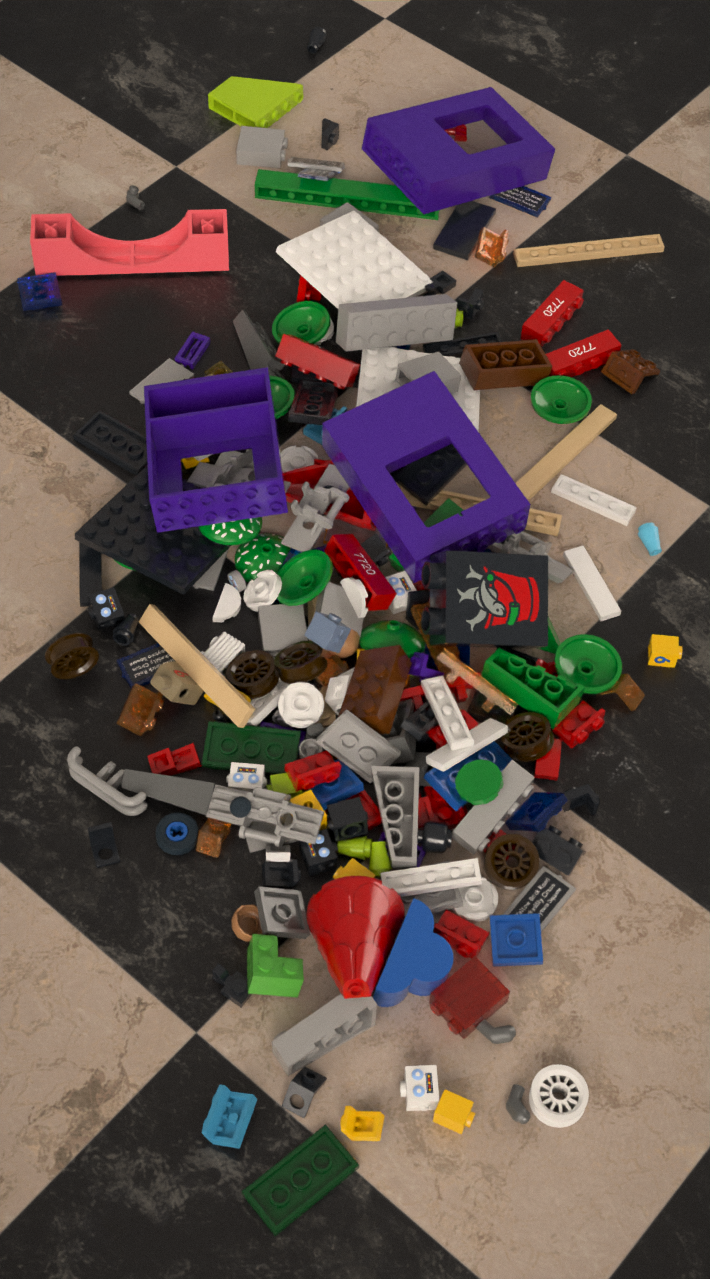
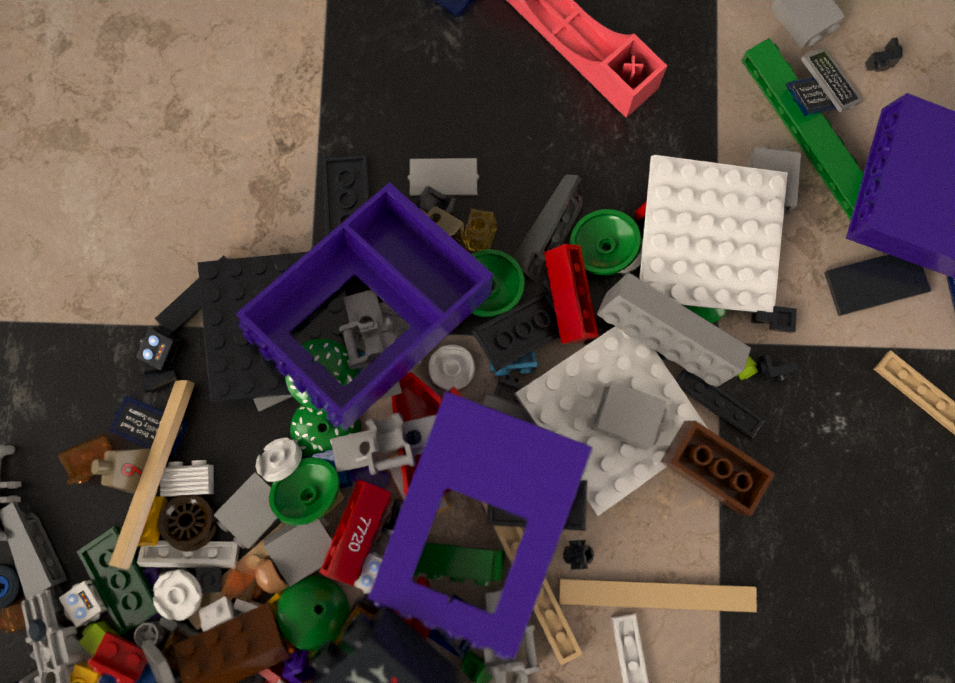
camera: 60 degrees right, 25 degrees up
(71, 656) = (85, 365): dark brown wheel -> none
(174, 762) = (65, 525): red slope -> none
(189, 360) = (504, 178): dark purple tile -> none
(228, 604) = (252, 437): white tile -> none
(237, 580) = (275, 427): light grey tile -> none
(300, 662) = (234, 559): dark brown wheel -> none
(328, 631) = (251, 567): sand blue head -> none
(356, 594) = (324, 550): white tile -> none
(491, 246) = (872, 328): clear orange bracket -> none
(552, 313) = (834, 454): red brick -> none
(561, 399) = (738, 555): green dish -> none
(583, 355) = (801, 524): red brick -> none
(628, 369) = (827, 583): reddish brown bracket -> none

